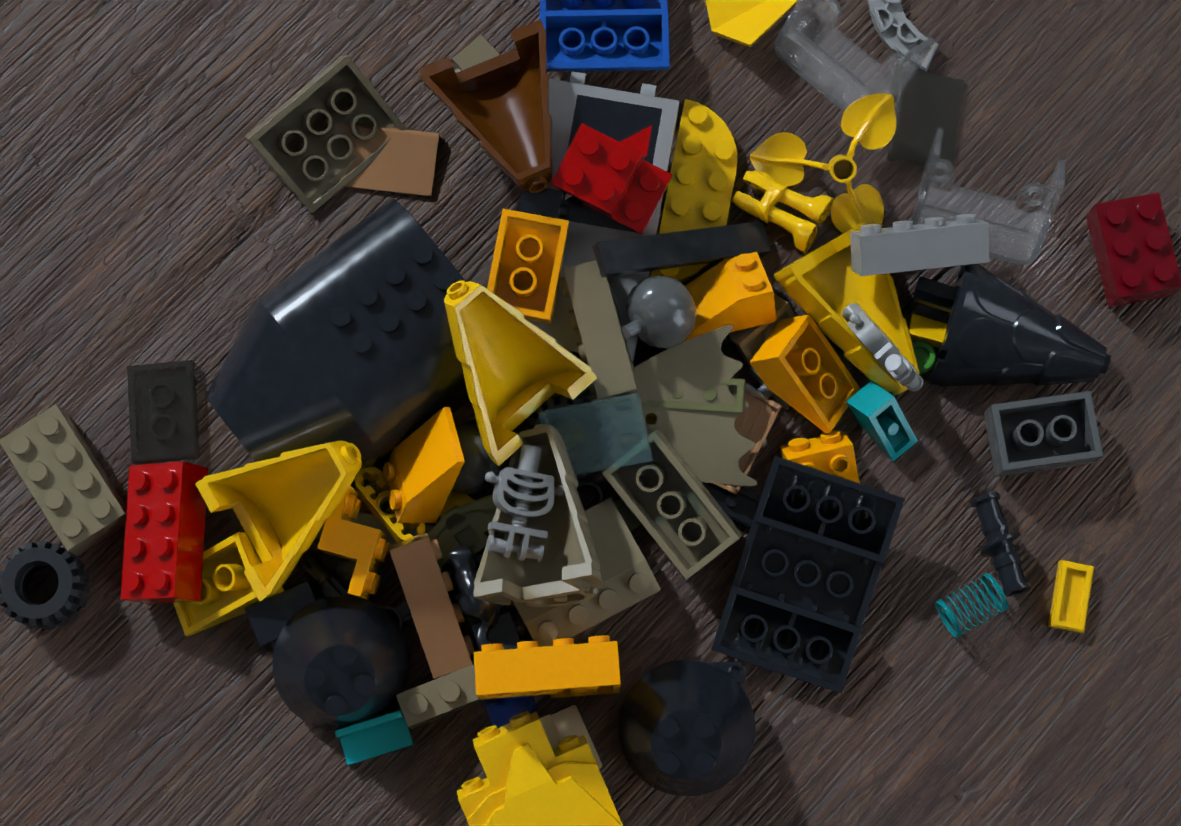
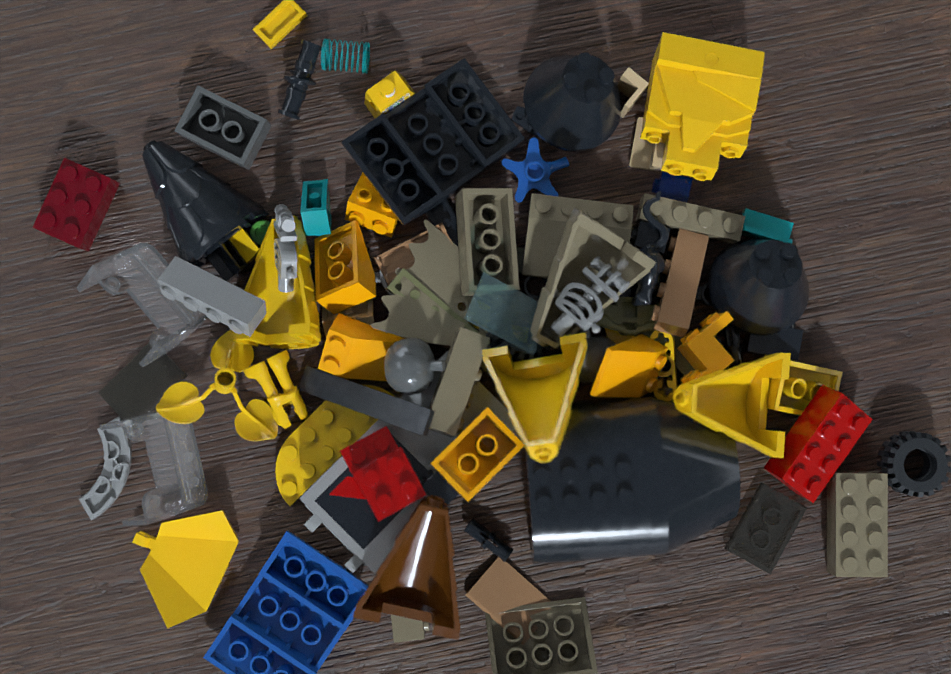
camera: 145 degrees left, 10 degrees up
(431, 202) = (502, 550): none -> black pin
(554, 670) = (630, 175): light orange brick -> none
(630, 789) = (633, 87): none -> tan panel
(674, 620) = (534, 171): none -> blue animal
(891, 596) = (387, 94): none -> yellow torso

